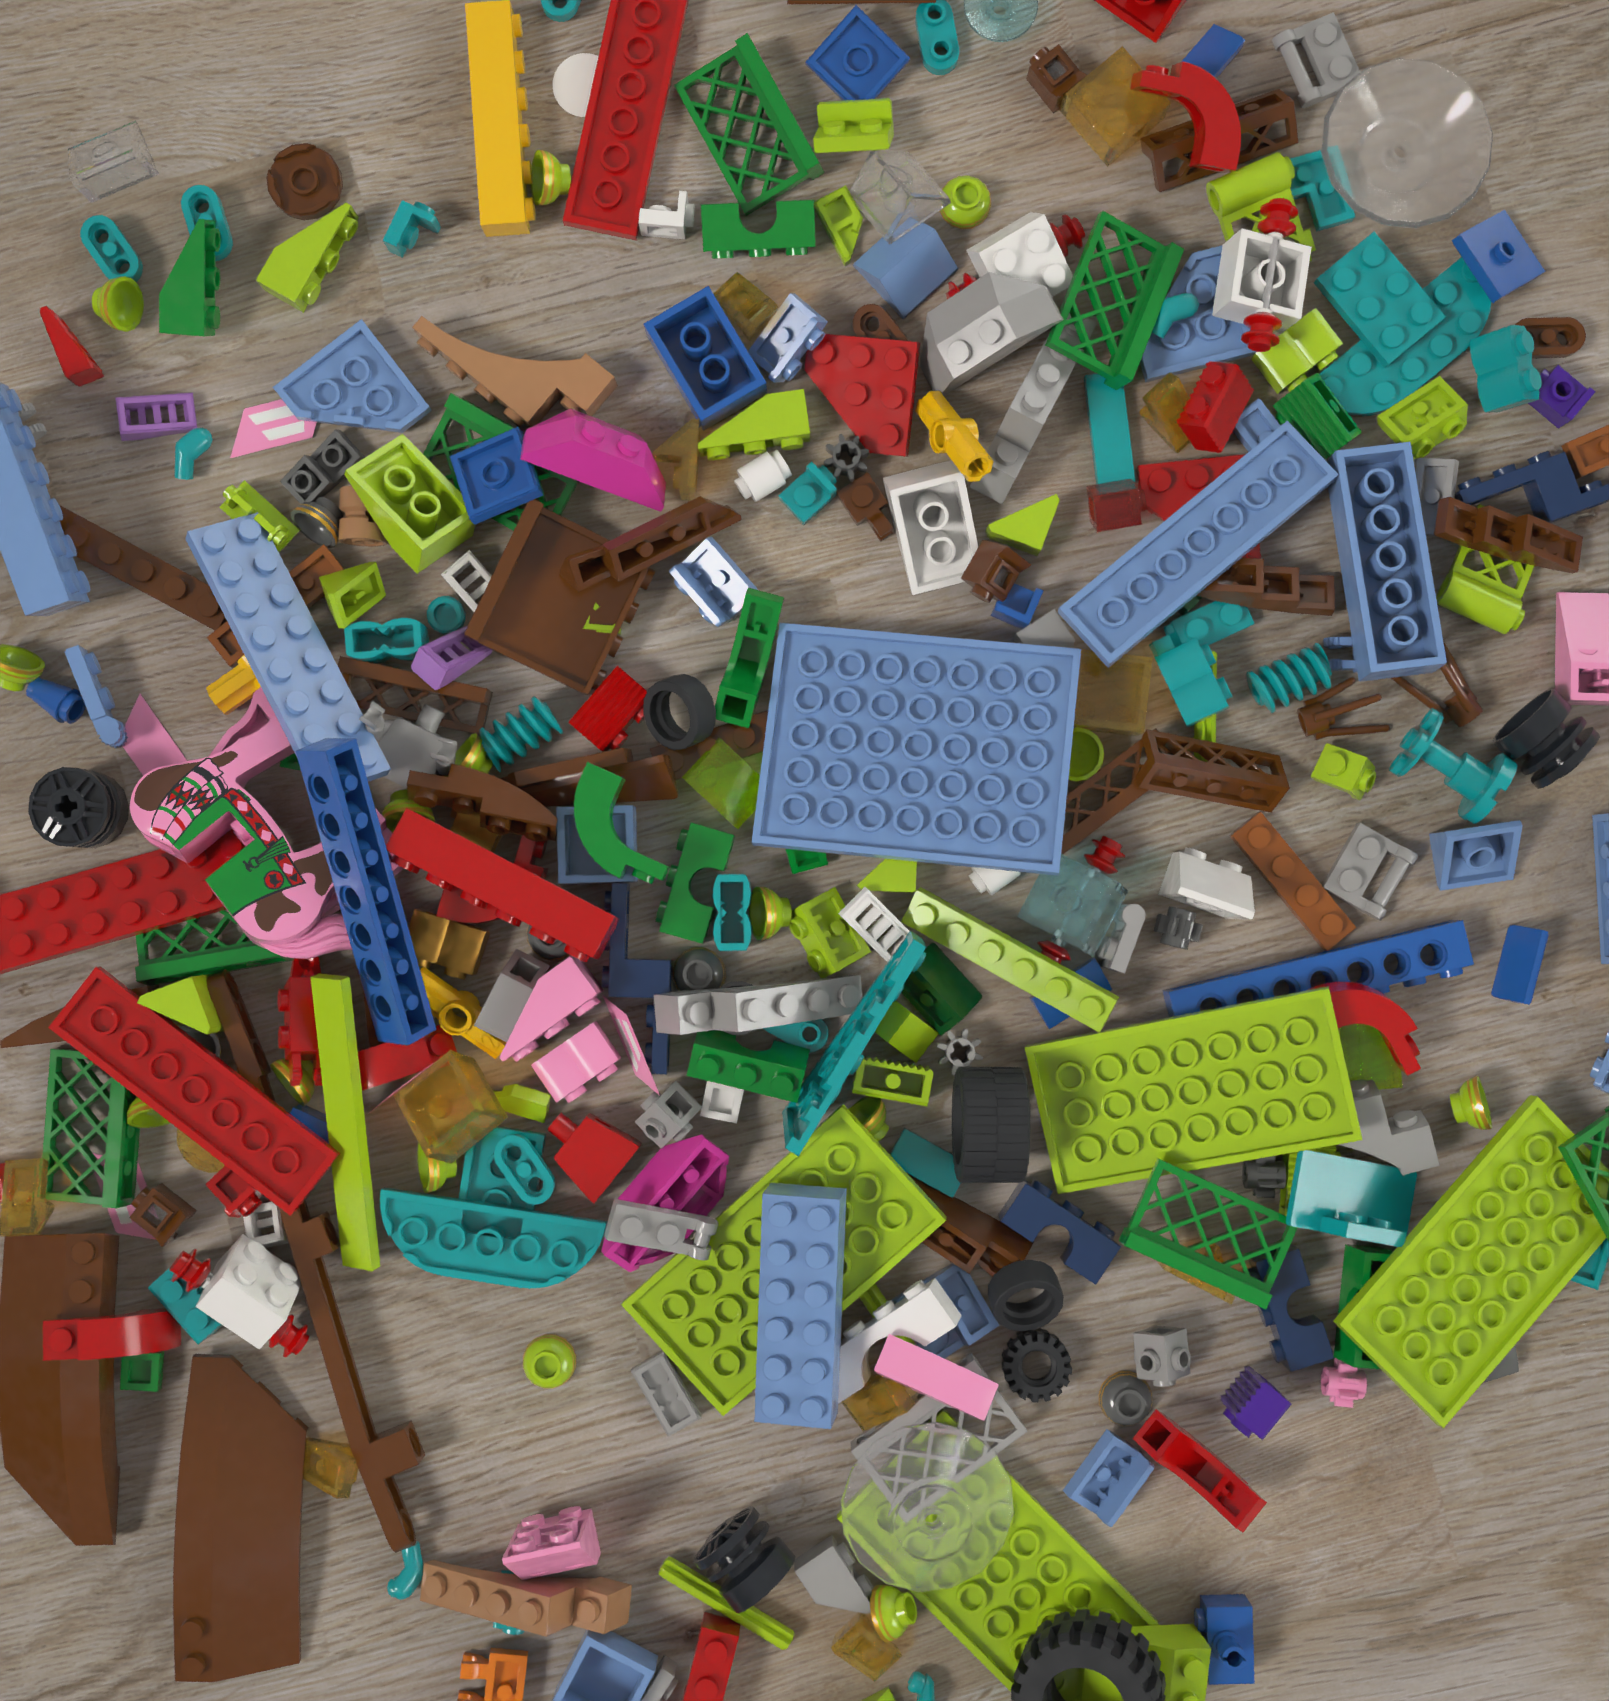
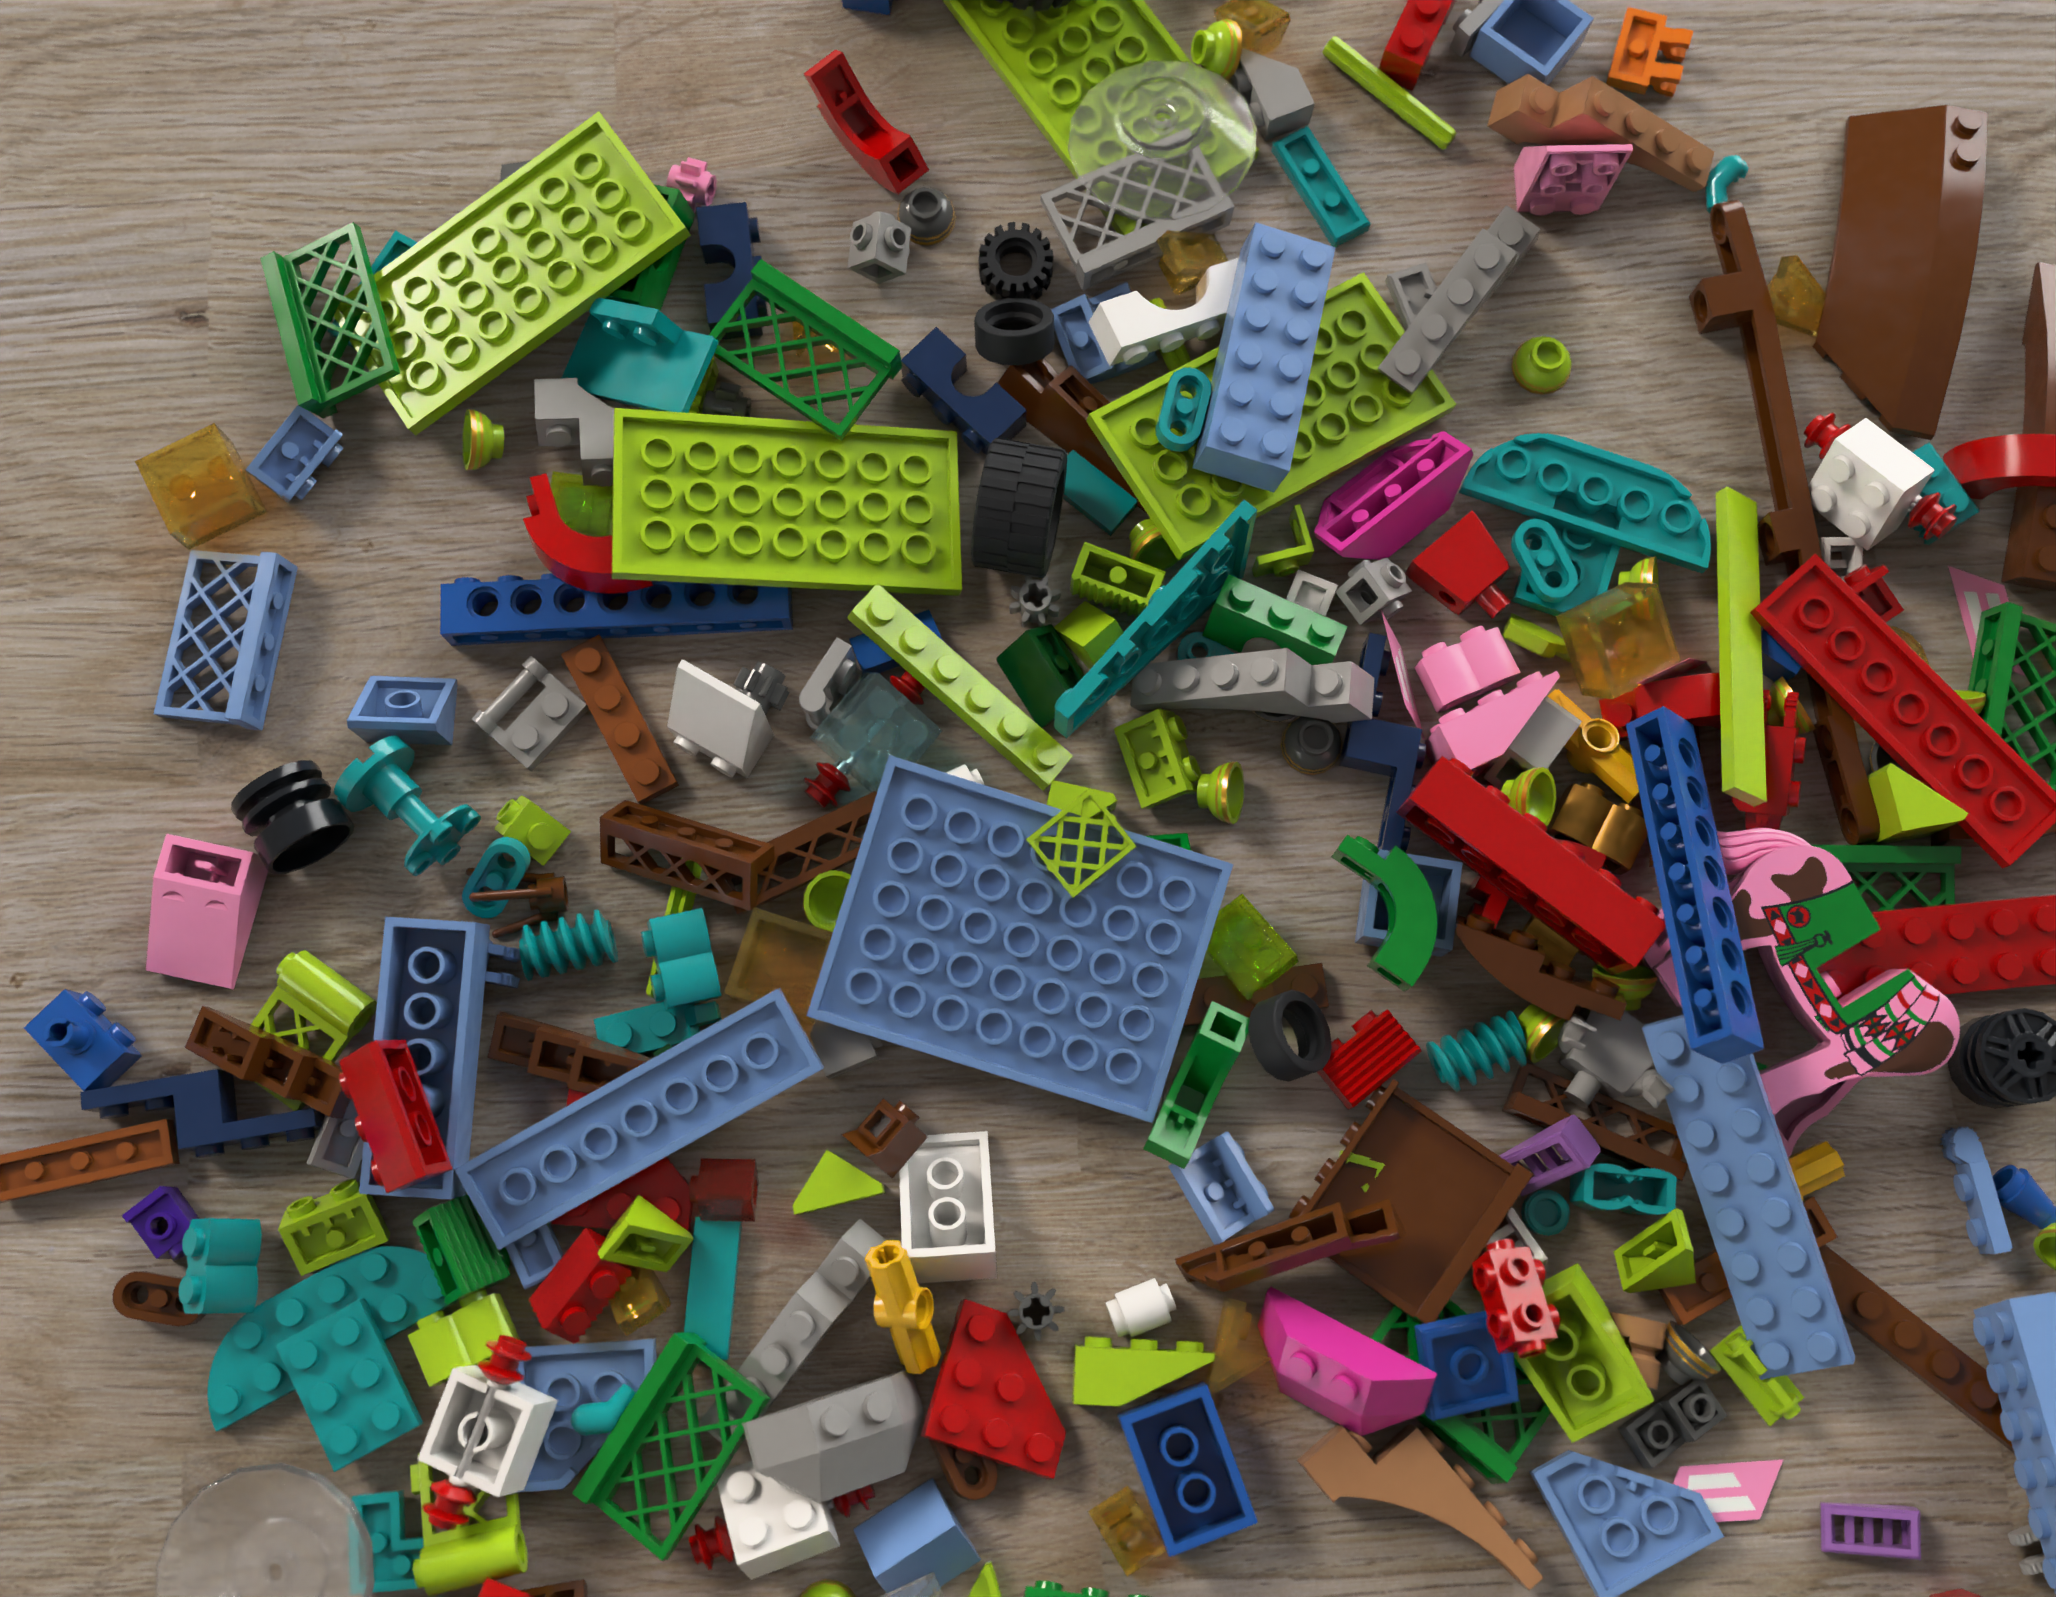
camera: 175 degrees left, 10 degrees down
(142, 1372) = (1989, 423): green plate -> none
(148, 740) = (1912, 1122): bright pink sticker -> none
(161, 1212) = (1953, 592): reddish brown window -> none
(189, 449) = (1834, 1477): teal arm -> none
(470, 536) = (1515, 1299): none -> red brick
(508, 948) = (1532, 793): none -> lime piece
(557, 782) = (1439, 985): reddish brown wedge -> none
(633, 1401) = (1459, 297): none -> light grey arch
(660, 1228) = (1404, 464): light grey plate -> none
(700, 850) = (1318, 808): green arch -> none
(732, 900) = (1264, 789): teal brick -> none
(746, 1129) = (1288, 561): none -> lime bracket
(750, 1566) = (1365, 123): black wheel -> none
(774, 1496) = (1320, 186): none -> teal tile
(787, 338) = (1080, 1475): medium blue bracket -> none
(809, 492) = (1087, 1278): teal bracket -> none
(863, 1238) = (1183, 412): none -> teal plate
(865, 502) = (1023, 1254): reddish brown plate -> none
(891, 940) = (1089, 733): white slope -> none
(903, 850) = (1108, 820): none -> lime window
(936, 1377) = (1131, 257): bright pink slope -> none
(1018, 606) = (865, 1091): blue panel -> none
(1109, 1477) = (961, 137): medium blue bracket -> none
(1173, 452) = (645, 1238): none -> lime slope
(1254, 1404) = (792, 178): dark purple brick -> none
(1363, 725) = (497, 874): none -> teal plate
(1396, 501) = (393, 1114): none -> red slope
(1460, 704) = (378, 881): reddish brown plant -> none
(1498, 256) = (191, 1411): blue plate -> none
(1519, 964) = (388, 579): blue slope -> none

